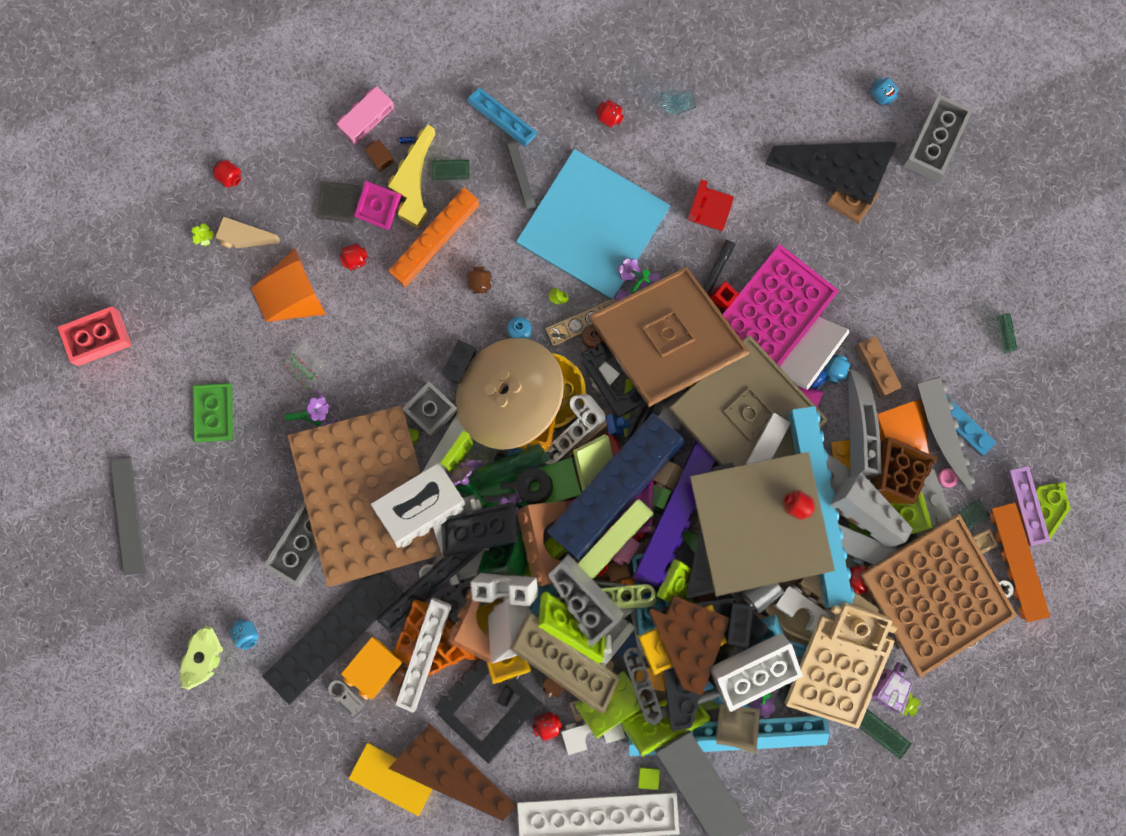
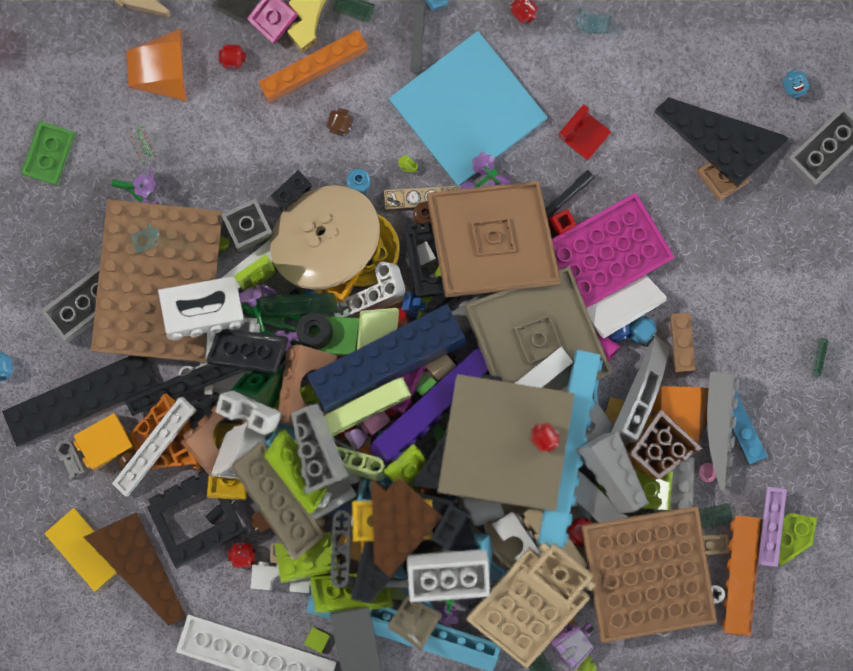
camera: 30 degrees right, 0 degrees up
(344, 453) = (152, 235): none -> clear light blue bracket
(614, 573) = (356, 438): none -> lavender tile

